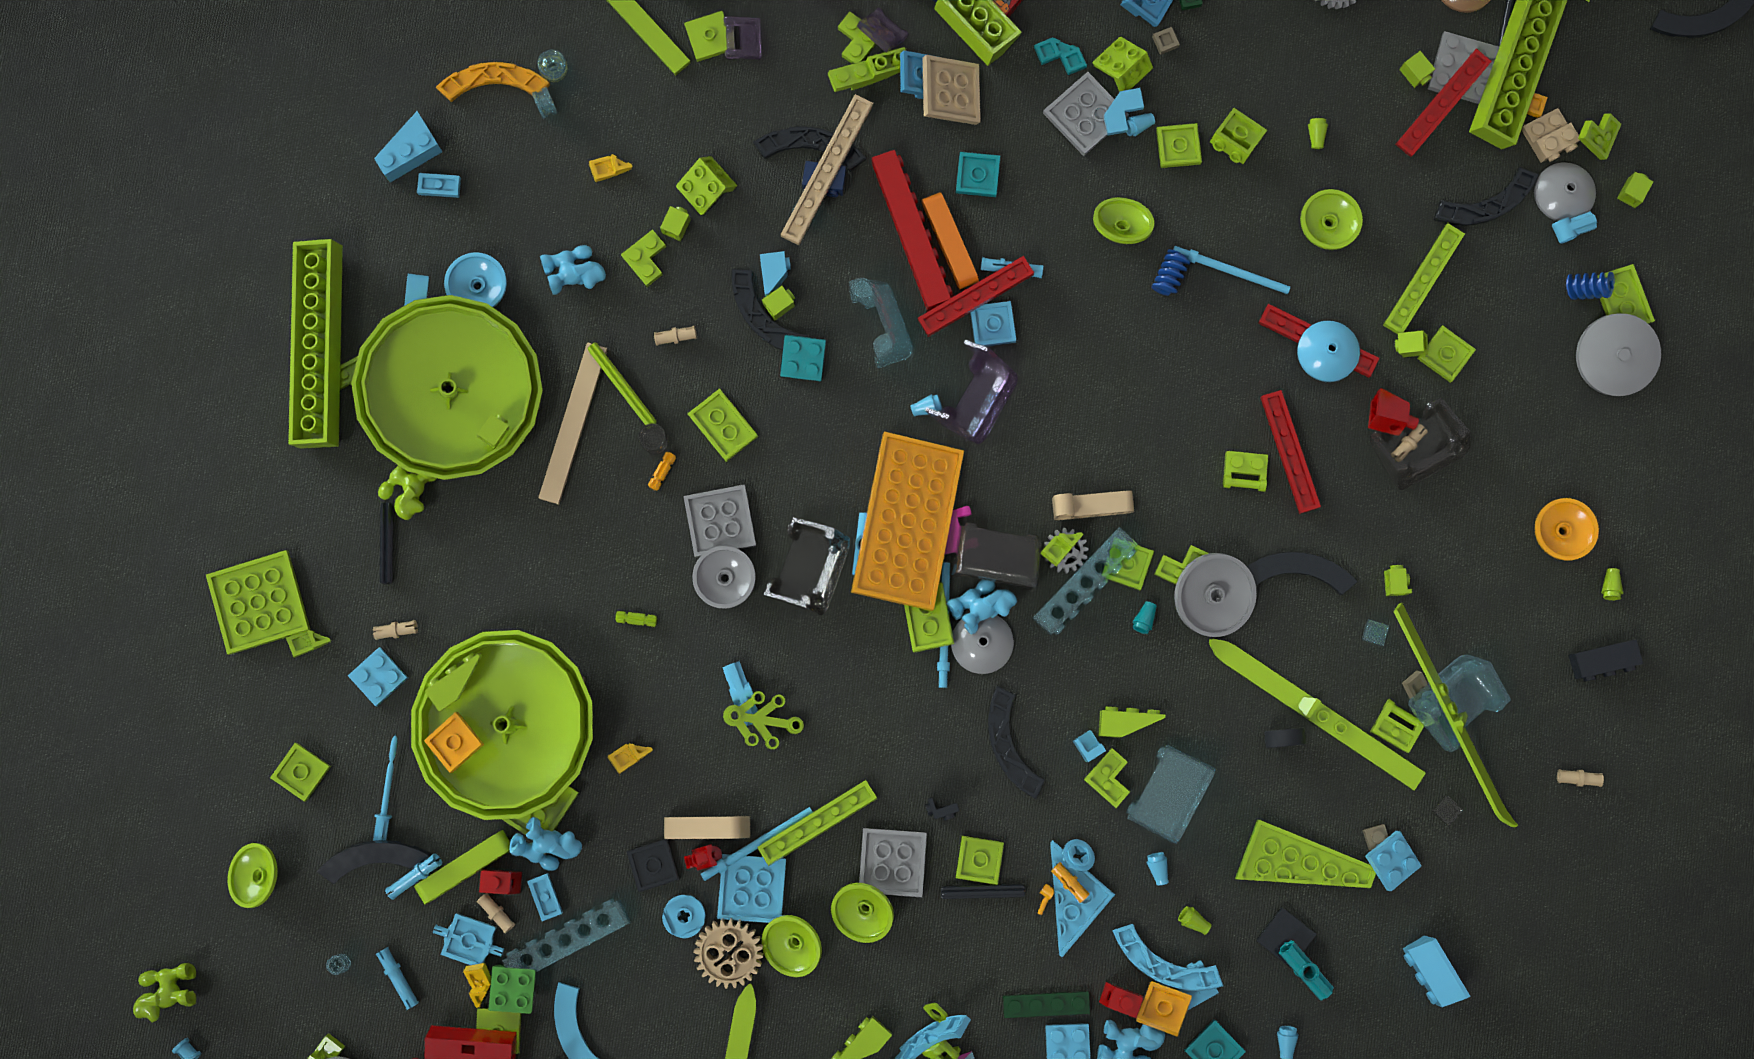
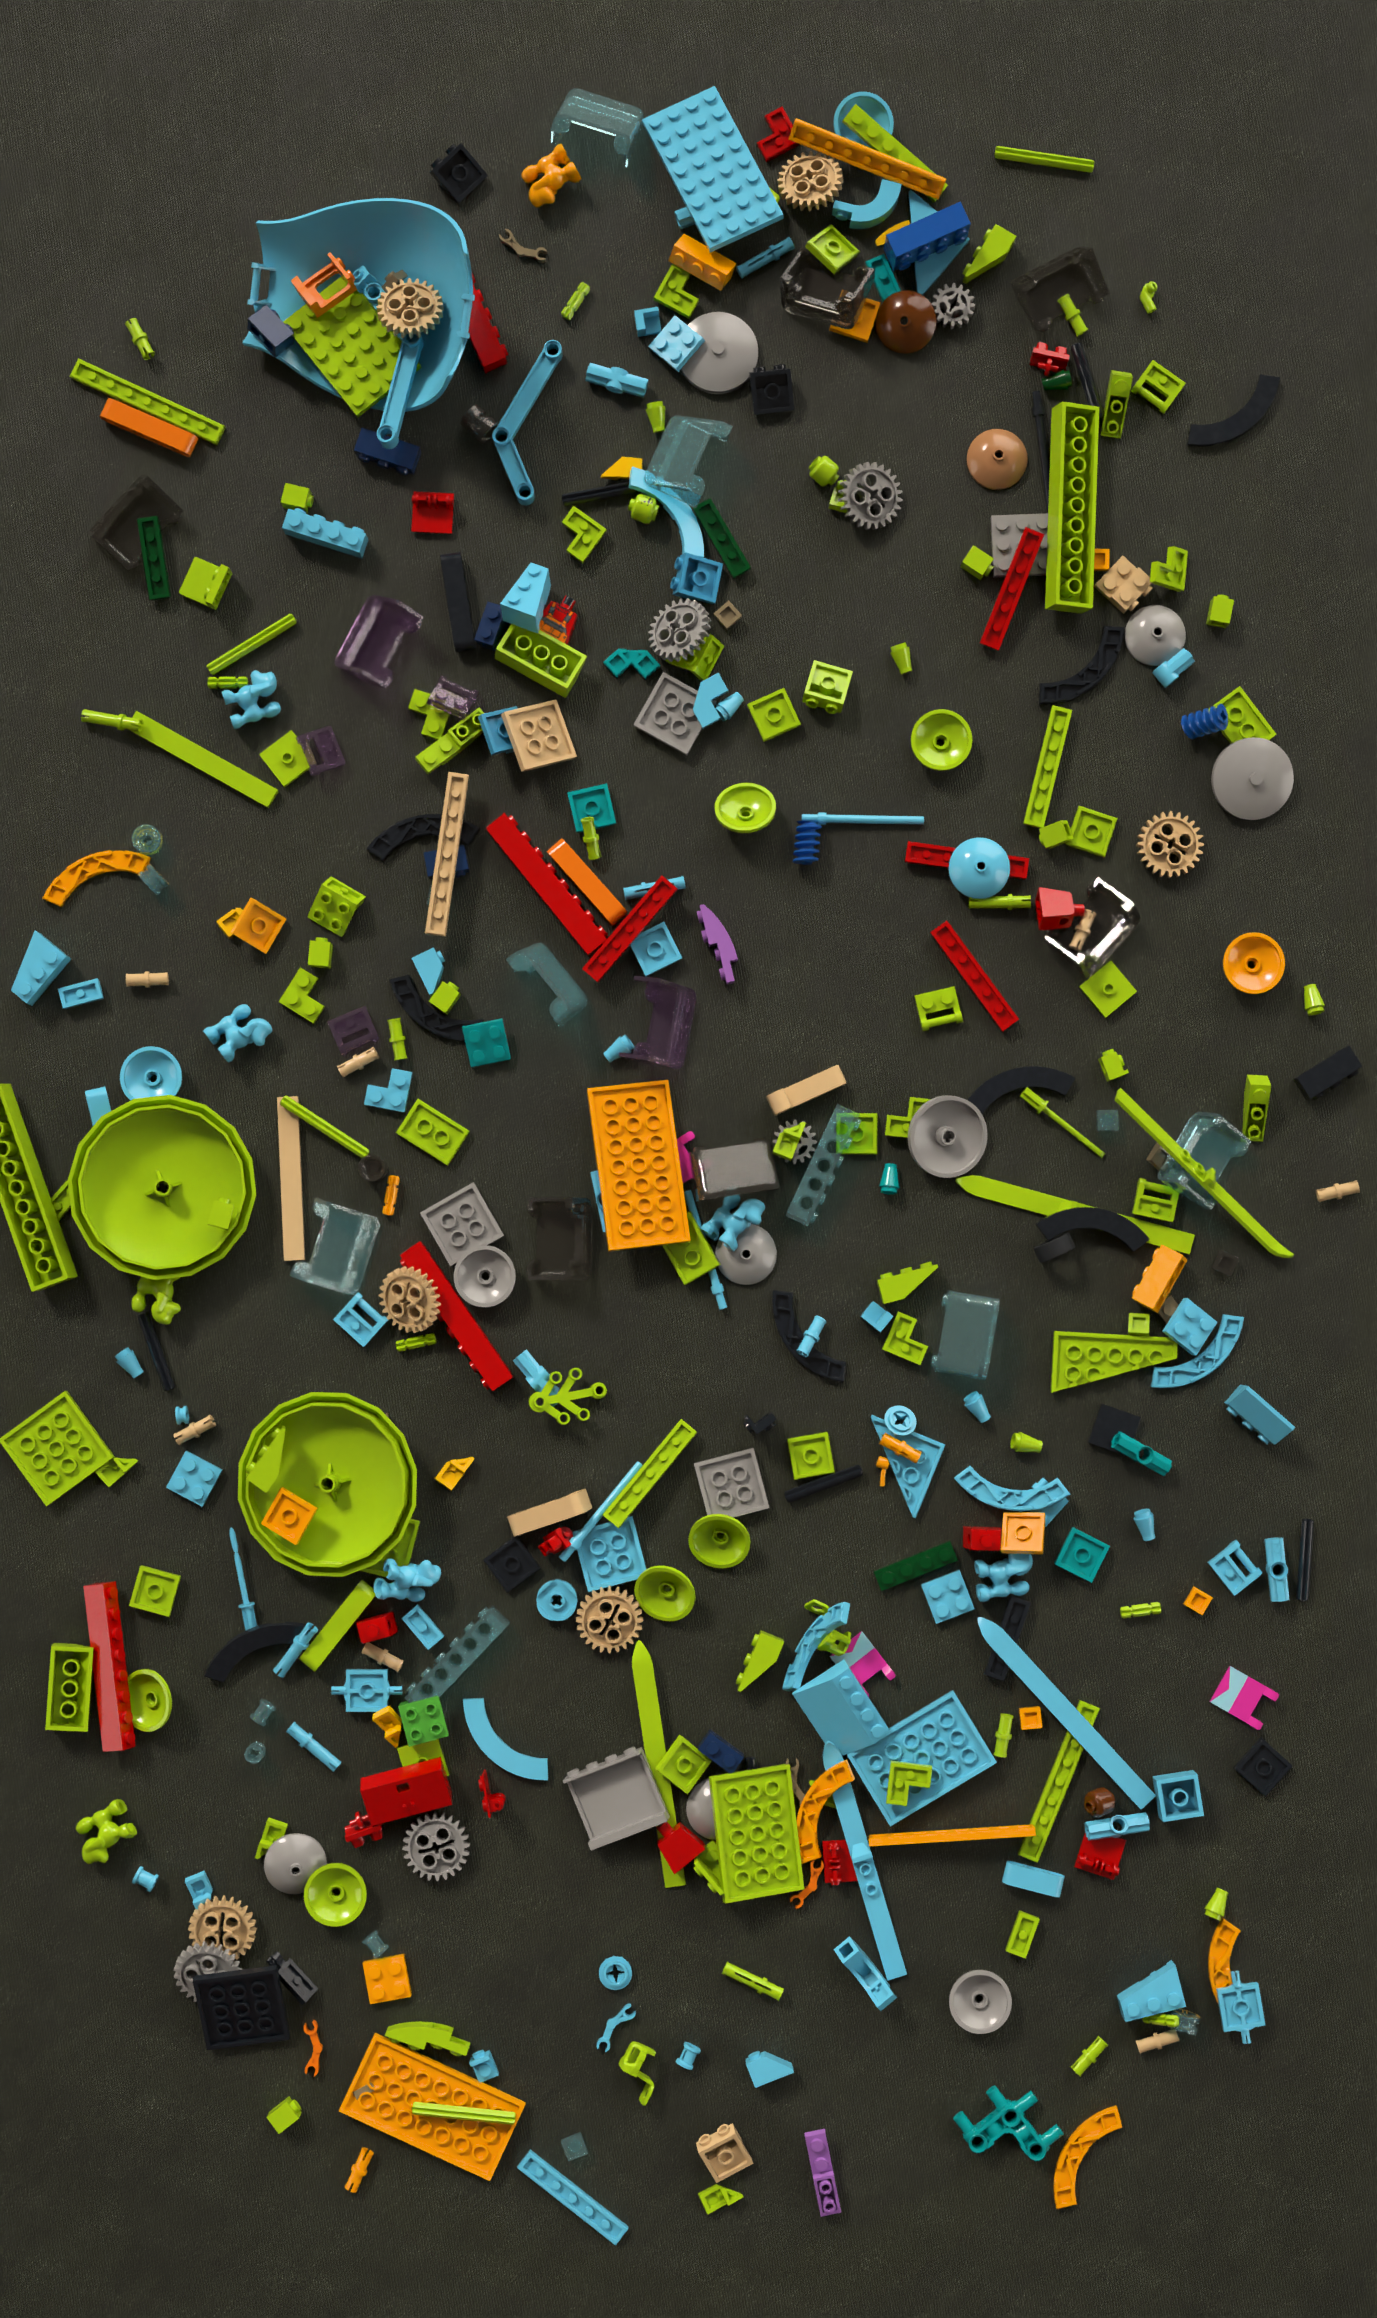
camera: 20 degrees left, 5 degrees up
(182, 837) = (69, 1687): none -> lime slope
(229, 830) = (109, 1666): none -> red brick
(357, 544) = (129, 1362): none -> medium azure cone
(367, 924) = (262, 1712): none -> clear light blue bush
(388, 611) = (182, 1415): none -> medium azure bush
(505, 193) = (147, 979): none -> tan pin
(584, 581) = (355, 1324): none -> medium azure plate
(596, 505) = (340, 1248): none -> clear light blue windscreen
(626, 177) = (258, 925): none -> light orange plate
(640, 565) = (409, 1299): none -> tan gear
(681, 297) = (350, 1024): none -> clear purple plate
(684, 607) = (459, 1320): none -> red brick
(697, 379) = (394, 1096): none -> medium azure plate
(720, 326) = (397, 1039): none -> lime pin
(967, 200) = (591, 838): none -> lime pin
(1019, 743) = (811, 1336): none -> medium azure pin
(1057, 332) = (717, 935): none -> medium lavender slope
(1116, 37) = (679, 630): none -> light grey gear
(1314, 596) = (1040, 1105): none -> lime piece
(1334, 723) = (1093, 1218): none -> black tile
(1338, 390) = (1001, 902): none -> lime pin
(1343, 841) = (1138, 1324): none -> lime plate
(1378, 803) = (1159, 1278): none -> light orange brick
(1396, 902) = (1205, 1362): none -> medium azure tile
(1415, 507) = (1107, 989): none -> lime plate
(1525, 668) = (1255, 1106): none -> lime slope
(1531, 378) = (1179, 828): none -> tan gear

